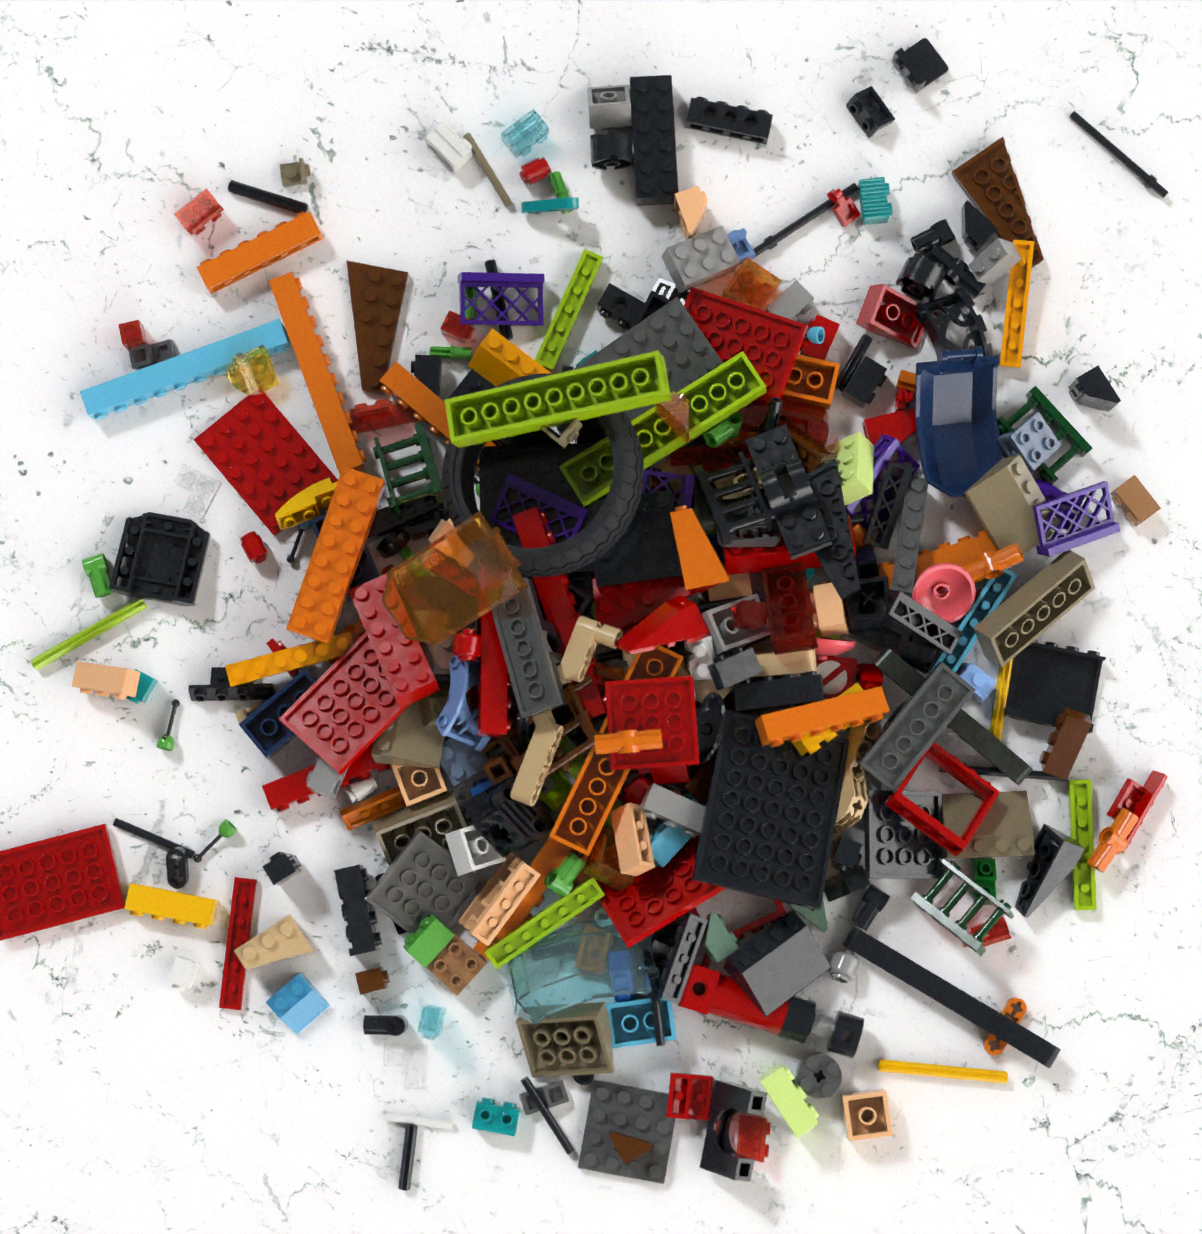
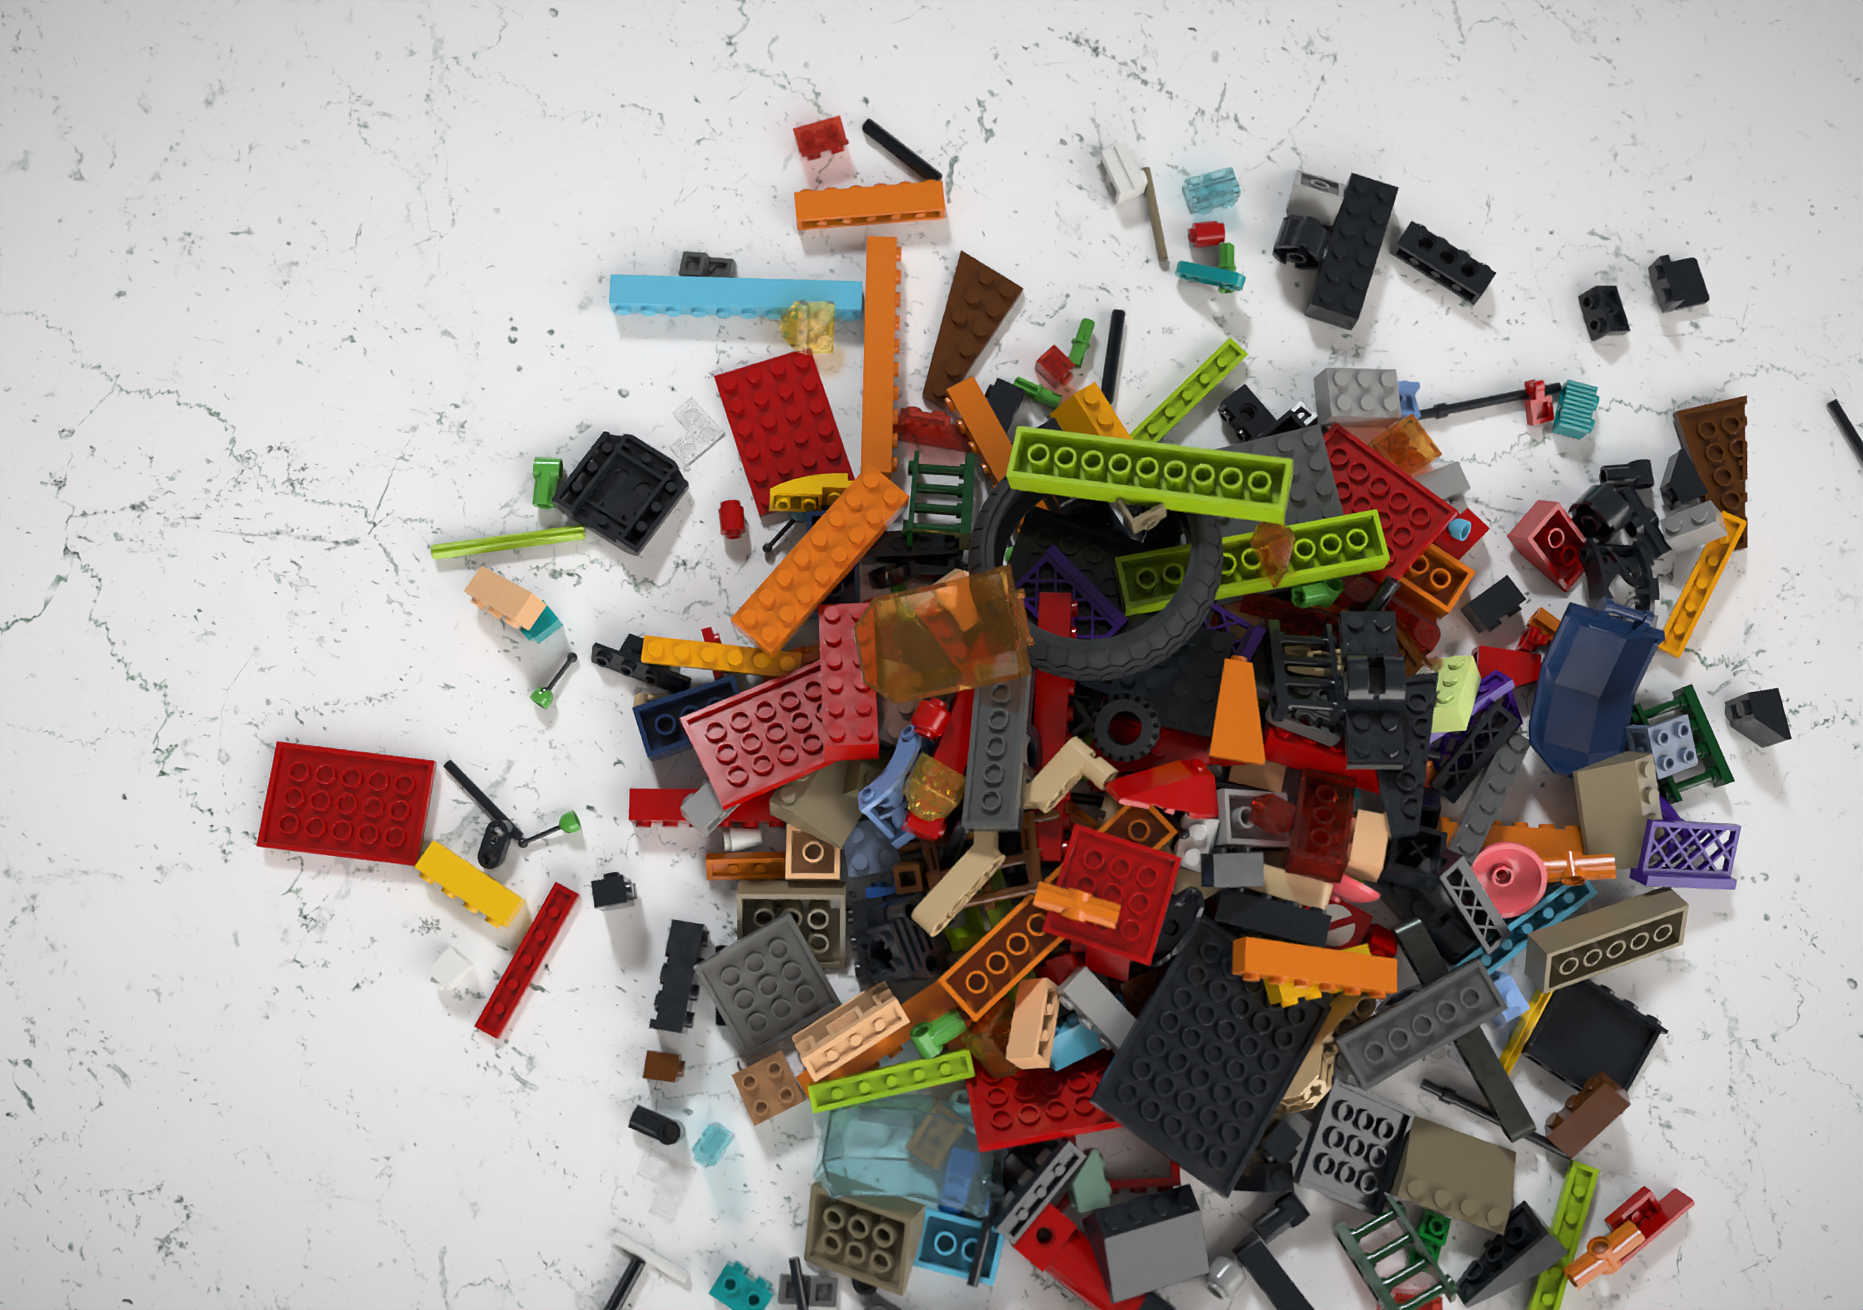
camera: 15 degrees right, 5 degrees down
(132, 334) = (694, 236): clear red brick -> none
(273, 945) = (567, 978): tan wedge -> none
(294, 173) = (941, 137): dark tan bracket -> none
(297, 1003) = (566, 1058): dark azure slope -> none
(428, 940) = (747, 1046): bright green brick -> none
(471, 850) = (839, 960): white slope -> none
(489, 697) = (933, 788): none -> clear yellow slope
(497, 281) = (1123, 333): dark purple fence -> none
(602, 606) = (1101, 727): none -> black tyre
(690, 210) = (1365, 338): light nougat slope -> none
(816, 917) = (1211, 1201): sand green slope -> none
(853, 362) = (1488, 577): black axle -> none
(928, 824) = (1391, 1145): red window -> none
(1134, 501) = (1762, 862): medium nougat brick -> none

